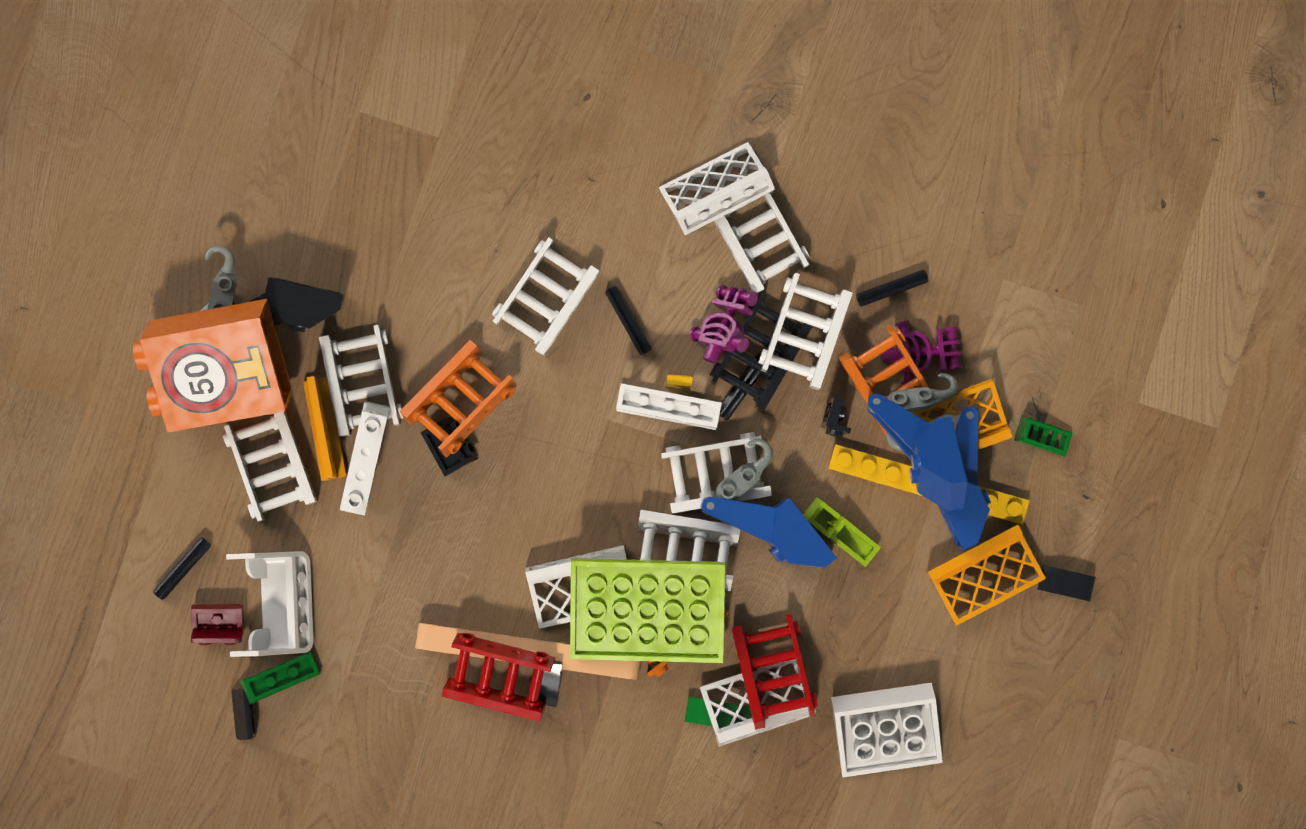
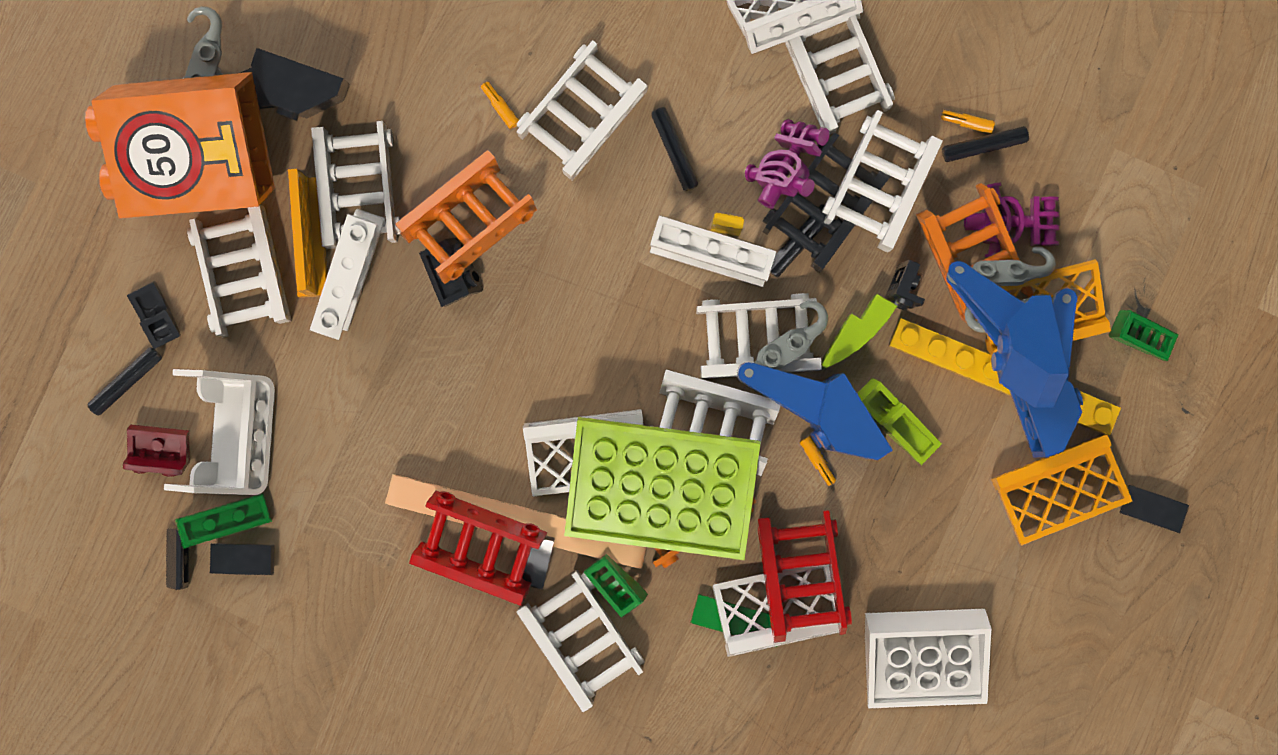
camera: 10 degrees right, 0 degrees up
(201, 509) = (154, 315): none -> black slope
(299, 708) = (242, 559): none -> black slope
(475, 299) = (500, 106): none -> light orange piece
(585, 768) = (552, 641): none -> white fence
(618, 707) = (614, 598): none -> green slope
(777, 572) = (816, 459): none -> light orange piece
(800, 459) = (858, 331): none -> lime slope
(878, 270) = (969, 121): none -> light orange piece

